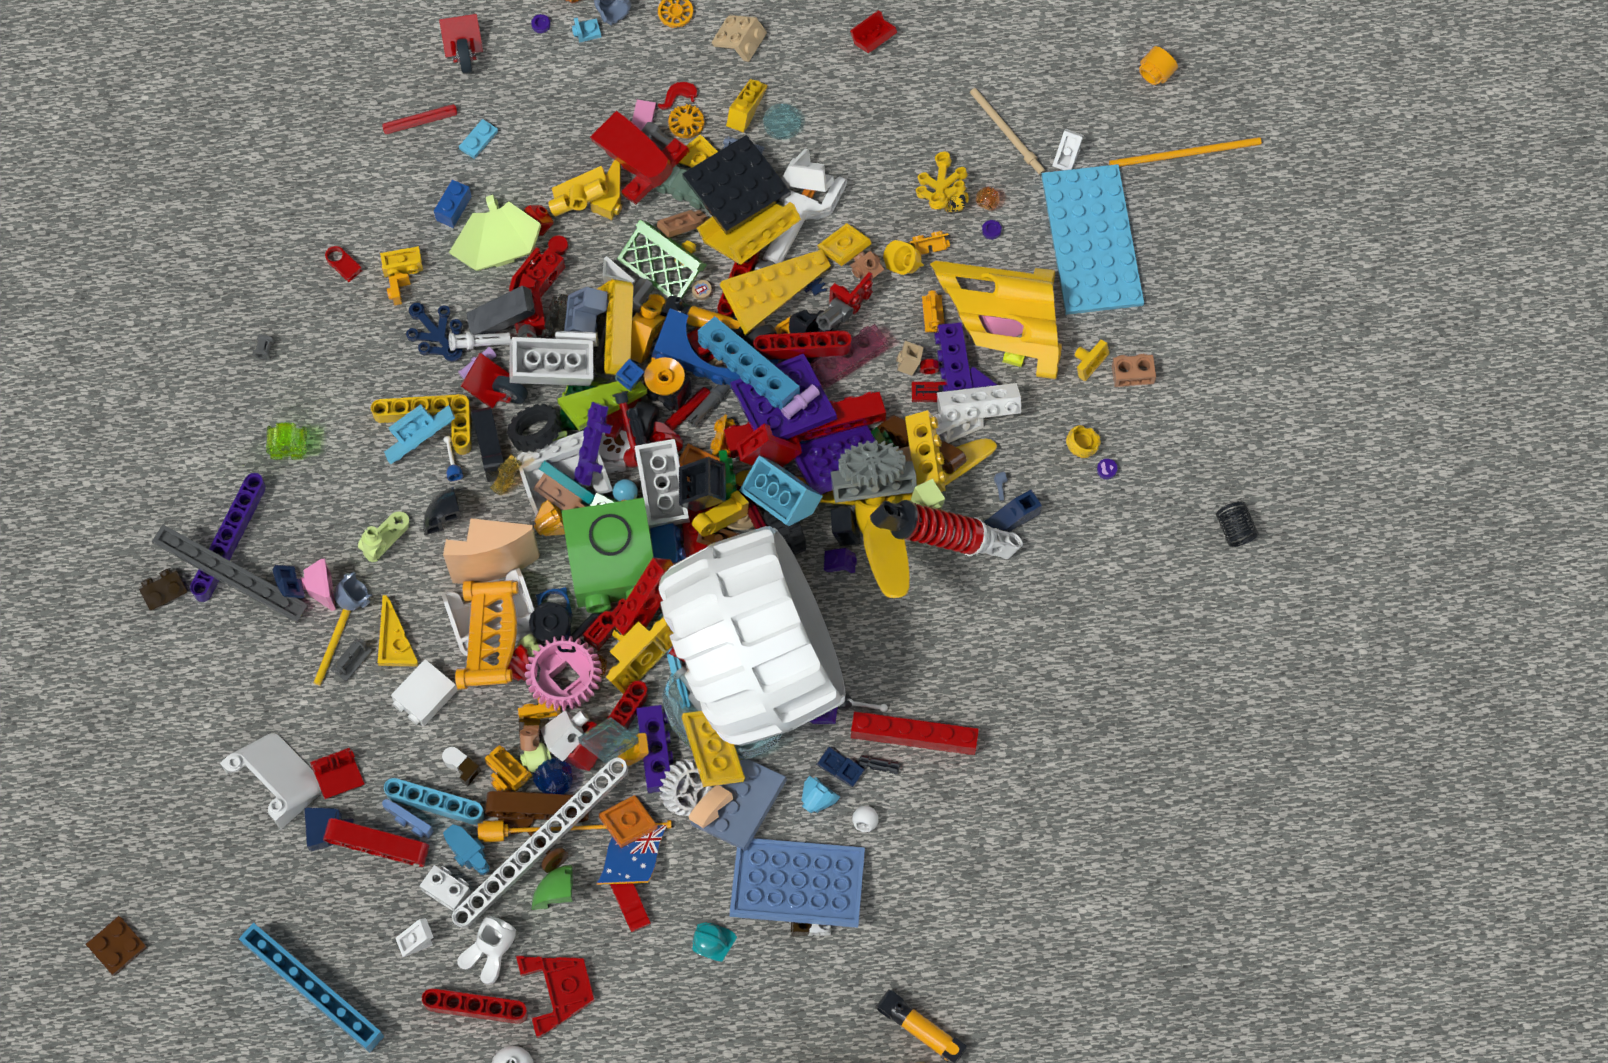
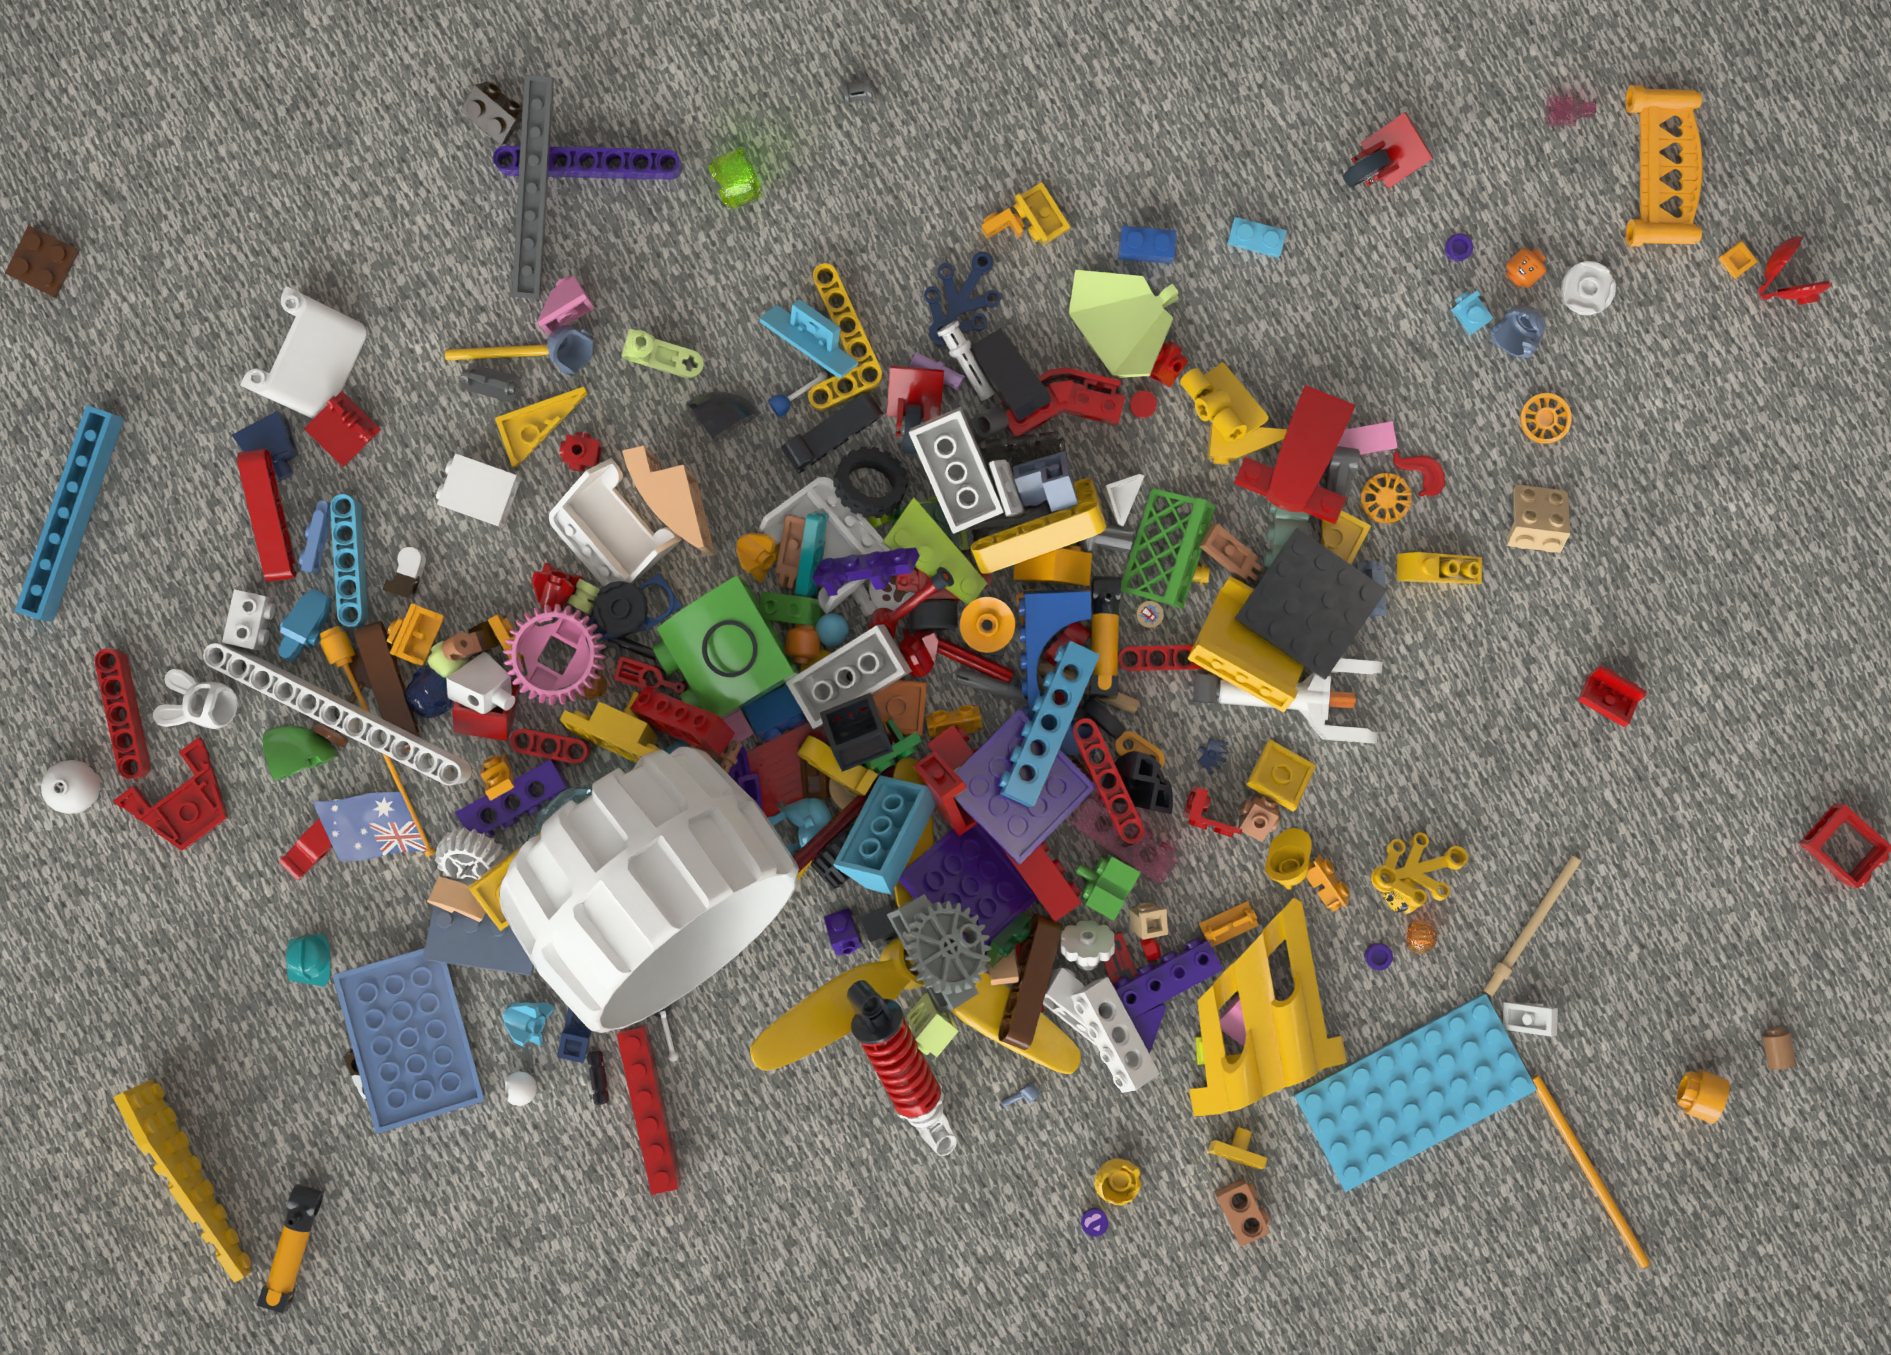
camera: 70 degrees right, 20 degrees up
(287, 581) = (553, 263): dark blue slope -> none
(345, 266) = (1009, 144): red piece -> none
(415, 938) = (176, 610): white slope -> none
(419, 119) = (1256, 148): red axle -> none
(428, 612) = (587, 458): none -> red brick
(482, 595) = (516, 549): light orange piece -> none
(506, 475) = (790, 474): clear yellow tile -> none
(608, 740) = (486, 745): clear light blue tile -> none
(627, 821) = (411, 803): orange tile -> none
(629, 375) = (972, 579): blue brick -> none
(636, 426) = (912, 613): black axle -> none
(654, 301) = (1106, 563): light orange piece -> none
(765, 290) = (1166, 700): yellow wing -> none
(782, 121) = (1433, 624): clear light blue tile -> none
(800, 401) = (1018, 812): lavender pin -> none
(808, 174) = (1361, 688): white panel -> none
(835, 313) = (1168, 806): dark grey piece -> none
(875, 372) = (1108, 885): none -> bright green brick
(911, 401) = (1087, 944): none -> white plant
(917, 425) = (1014, 985): yellow brick -> none
(1015, 512) = (979, 1126): dark blue slope -> none
(1144, 14) = (1779, 1048): none -> medium nougat brick

